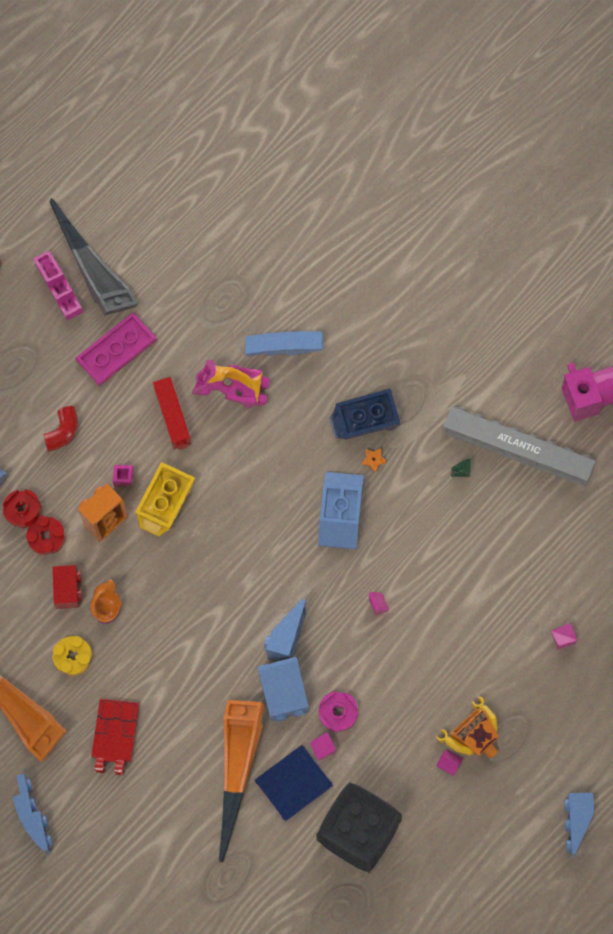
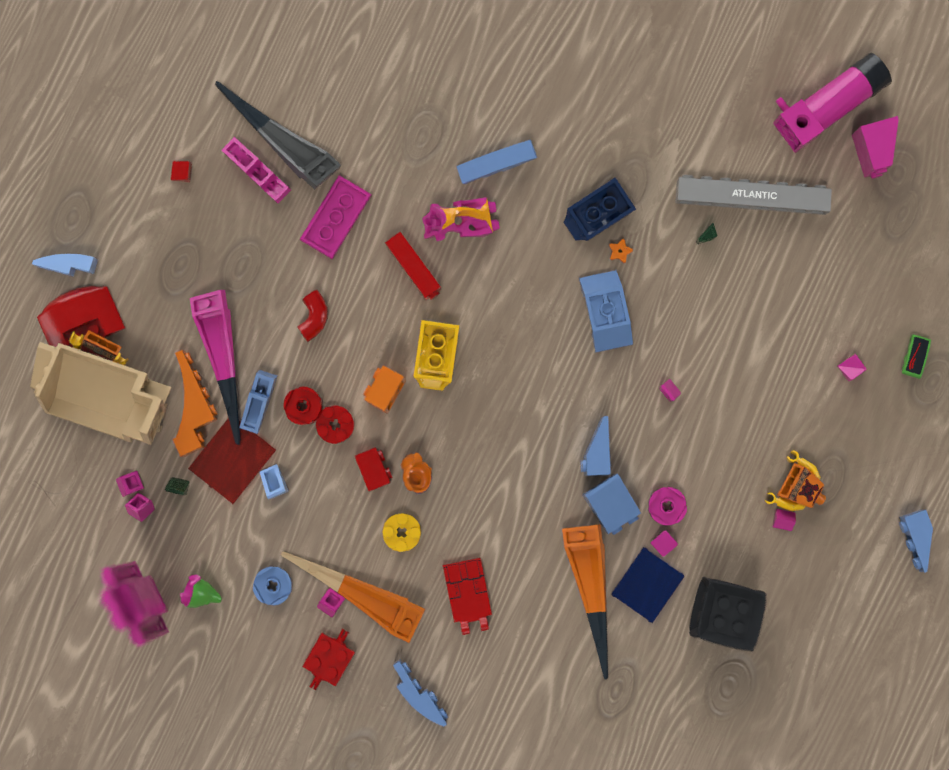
camera: 25 degrees left, 15 degrees up
(123, 475) = (388, 343): dark pink slope -> none

